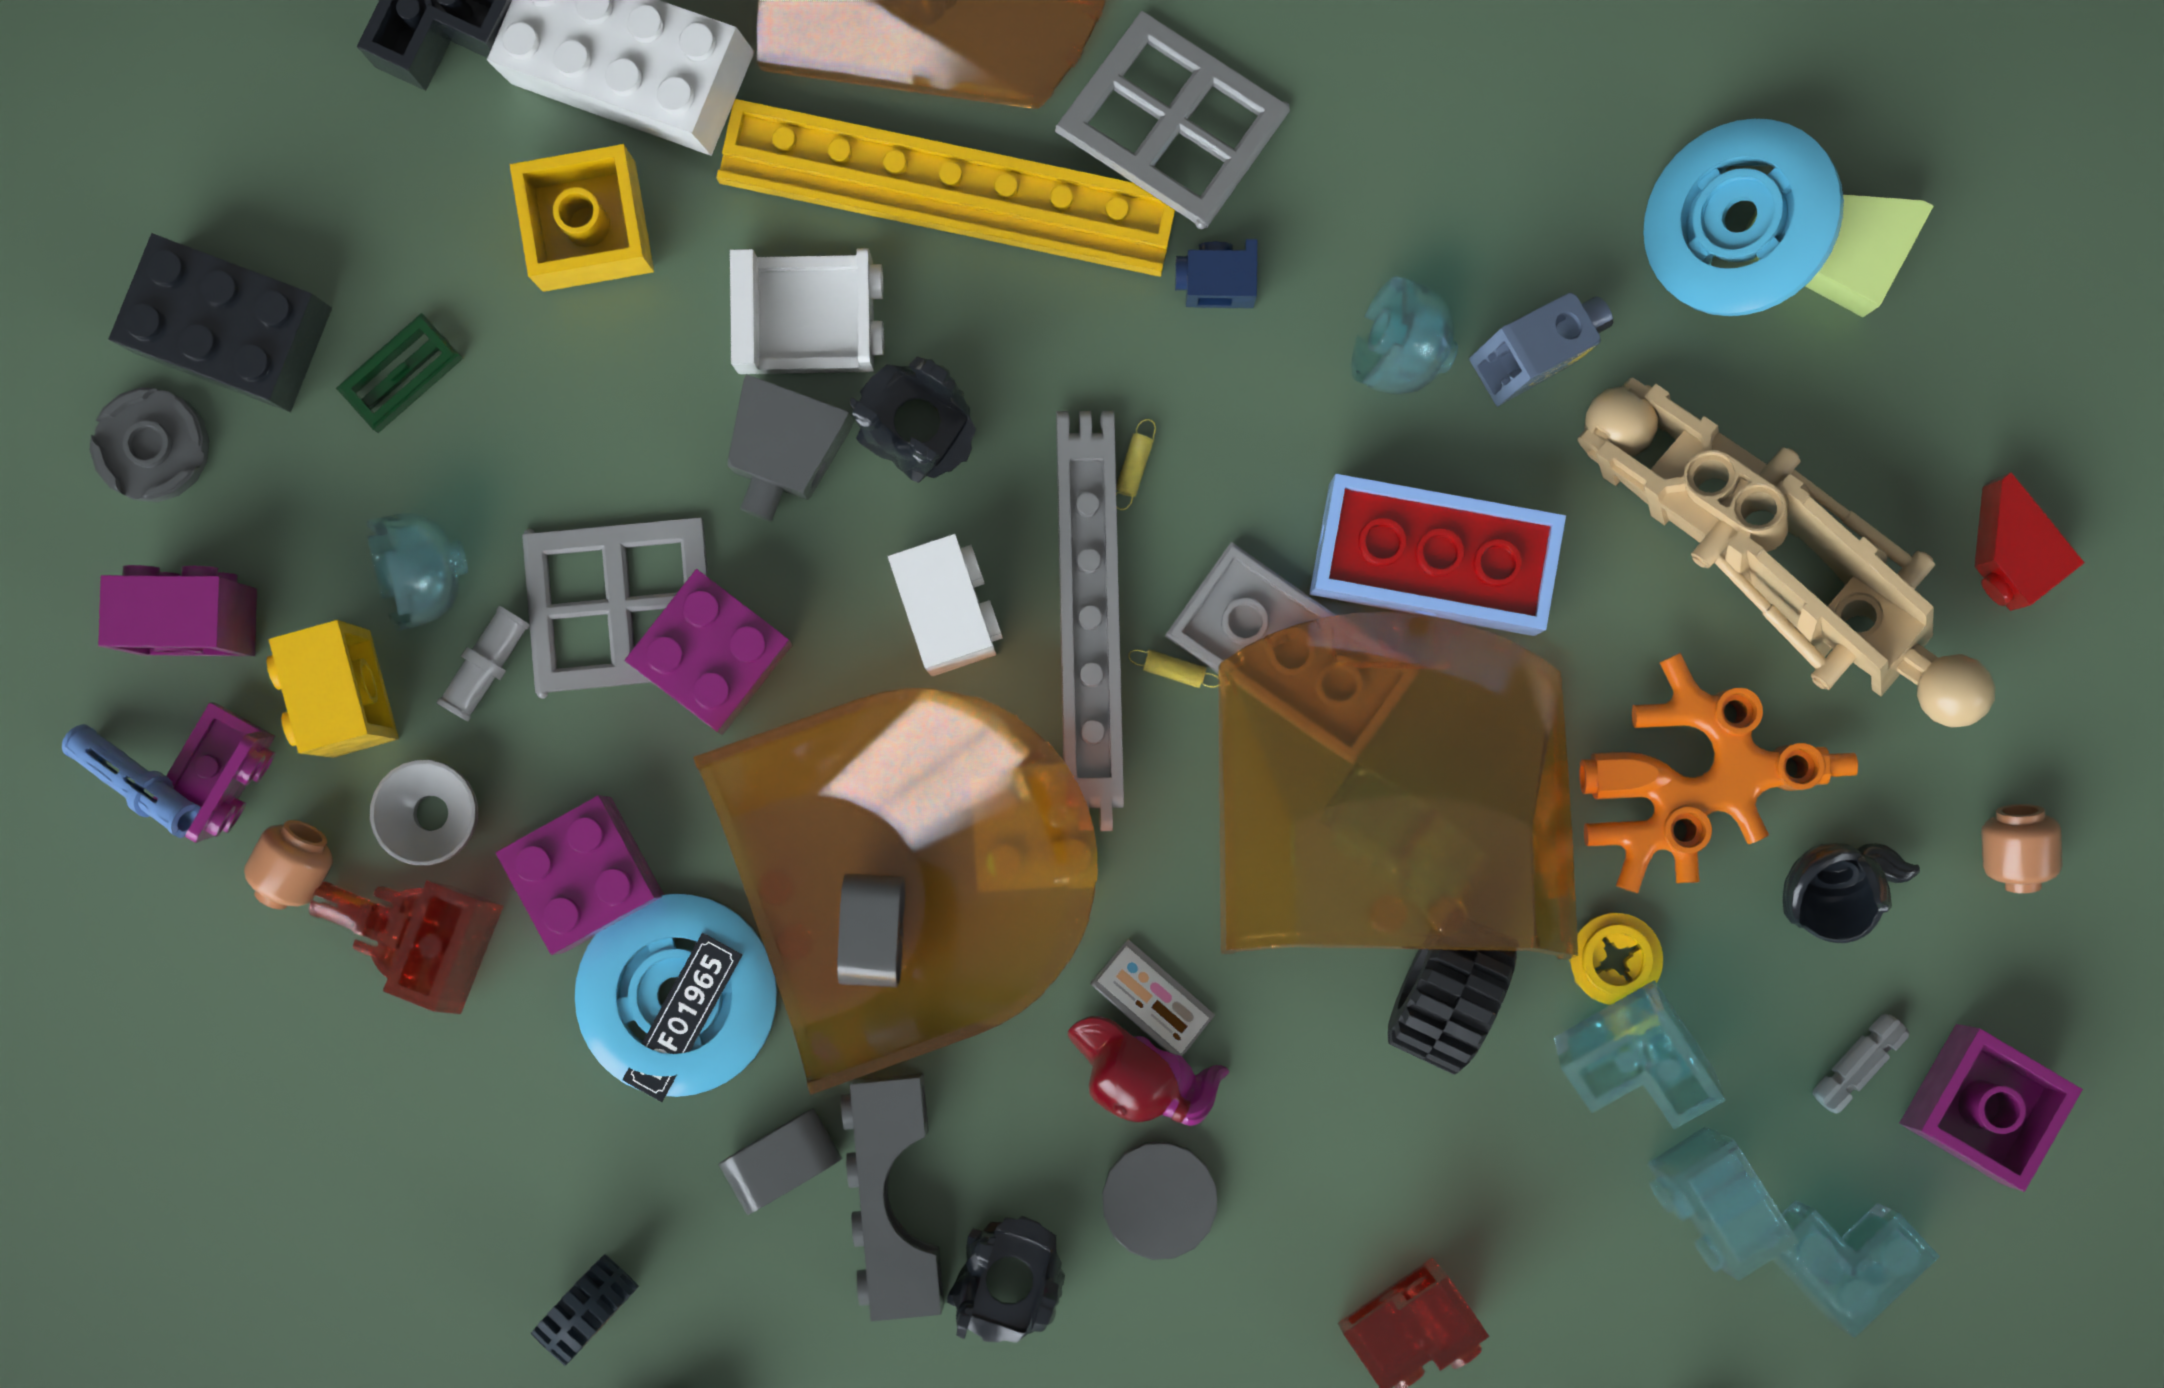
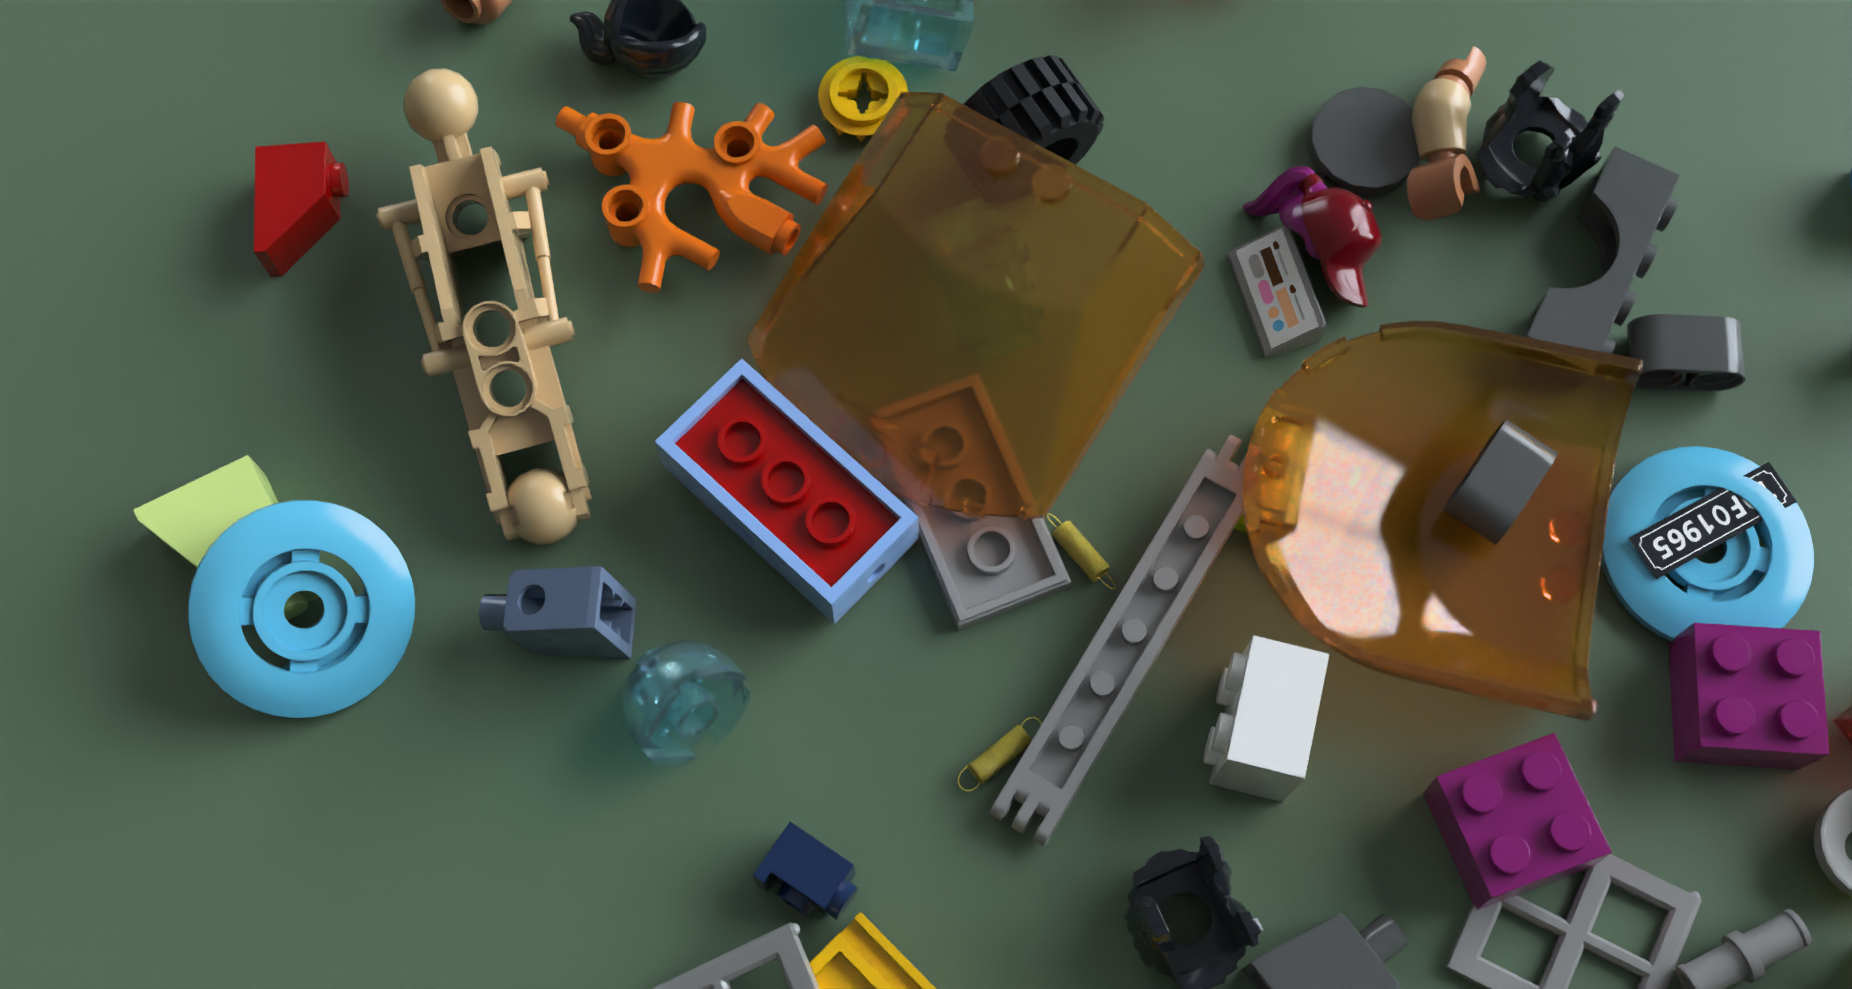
camera: 150 degrees left, 15 degrees down
(1099, 1237) = (1440, 136): none -> piece

